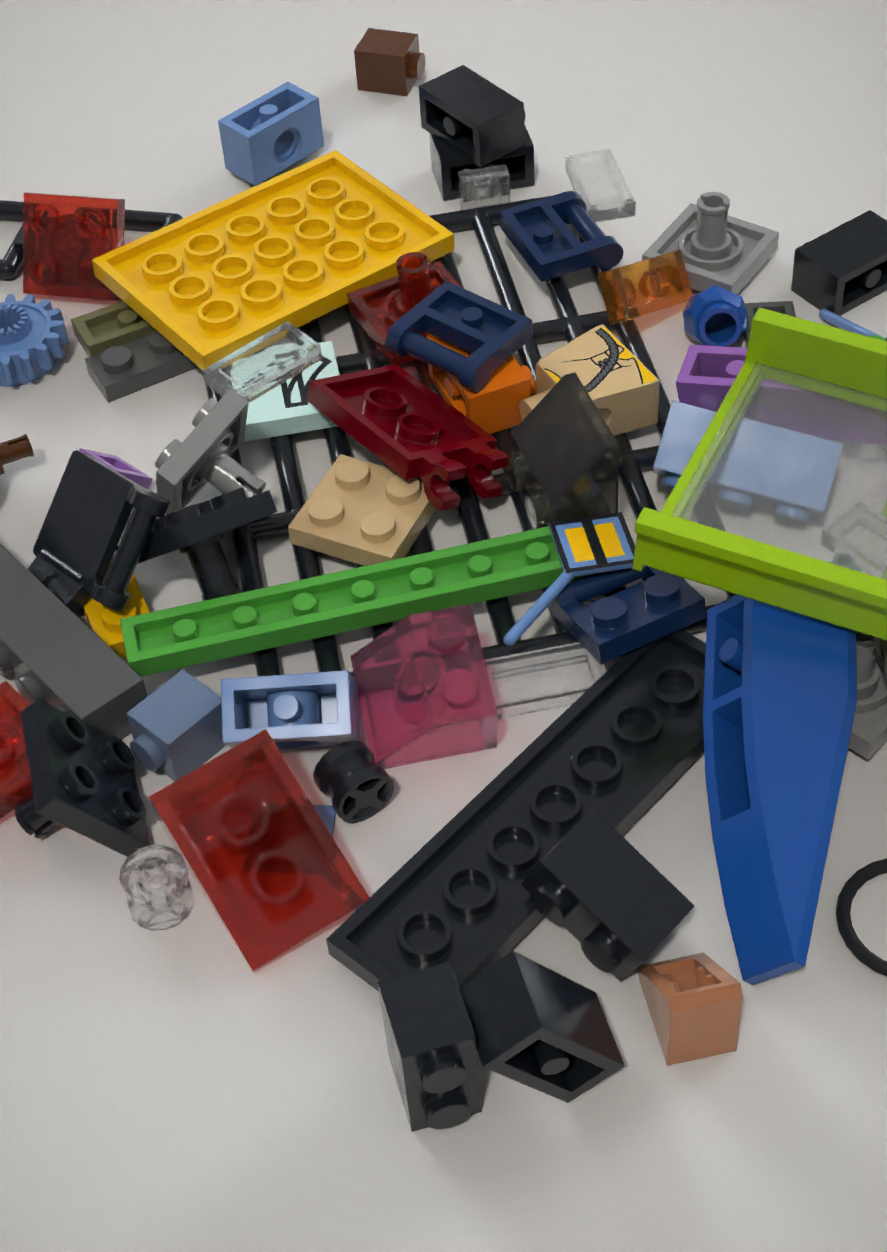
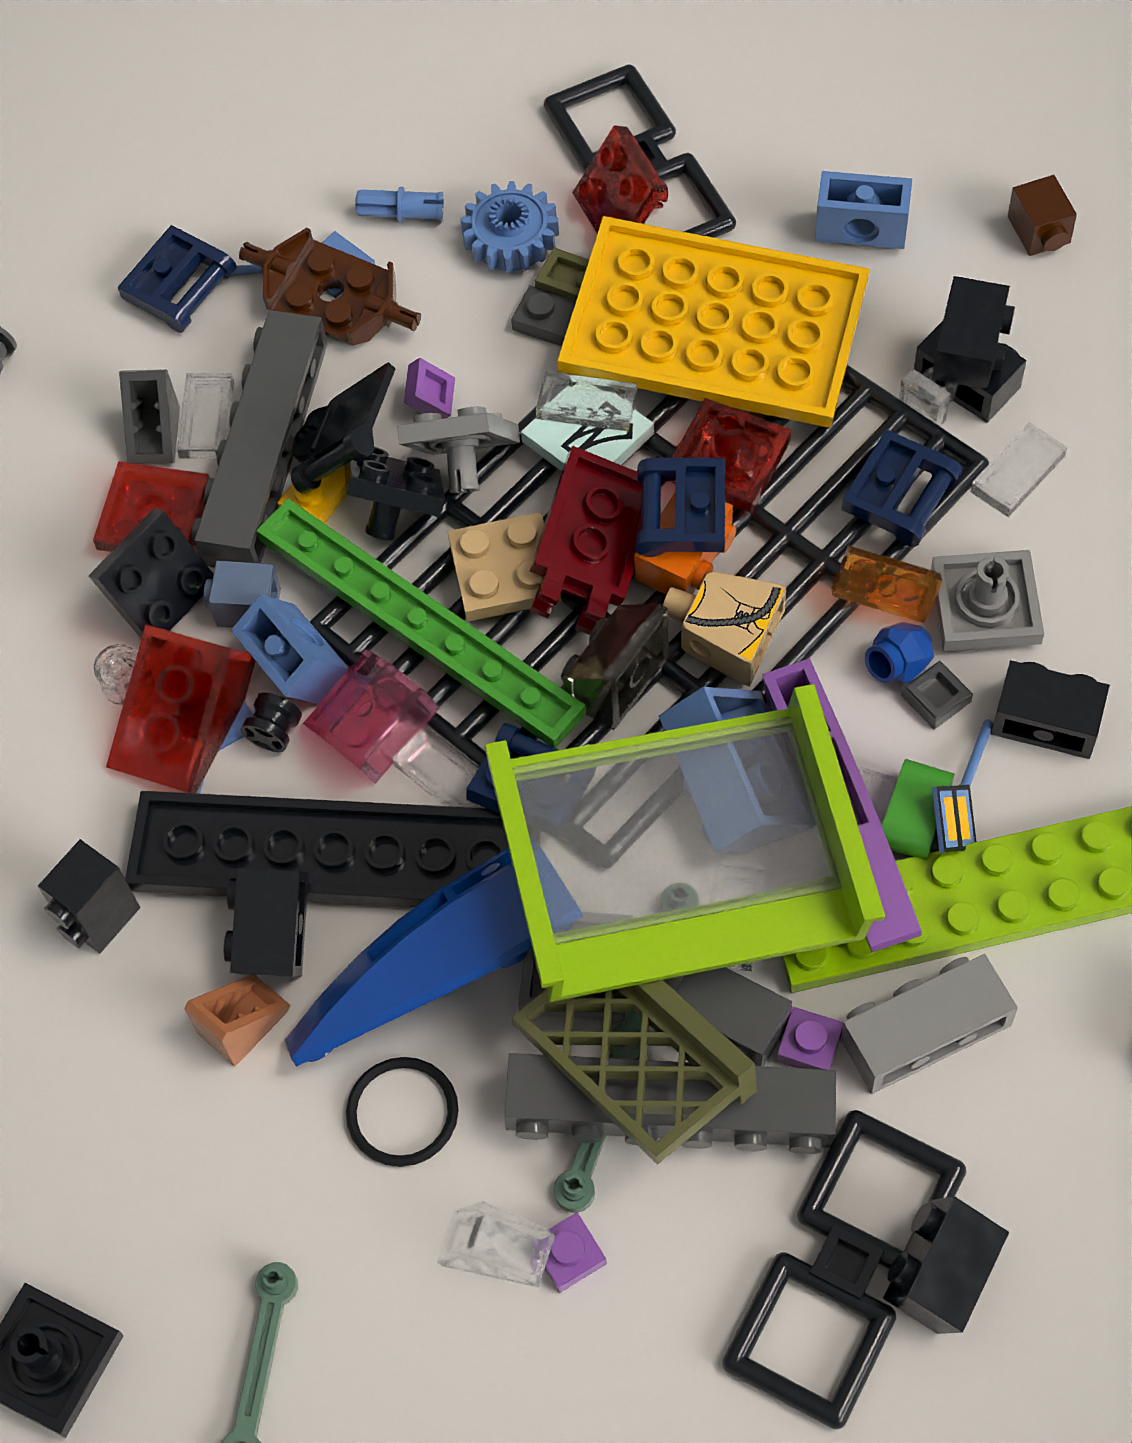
camera: 55 degrees right, 15 degrees up
(540, 1027) = (139, 944): black brick -> none
(583, 548) = (550, 726): piece -> none

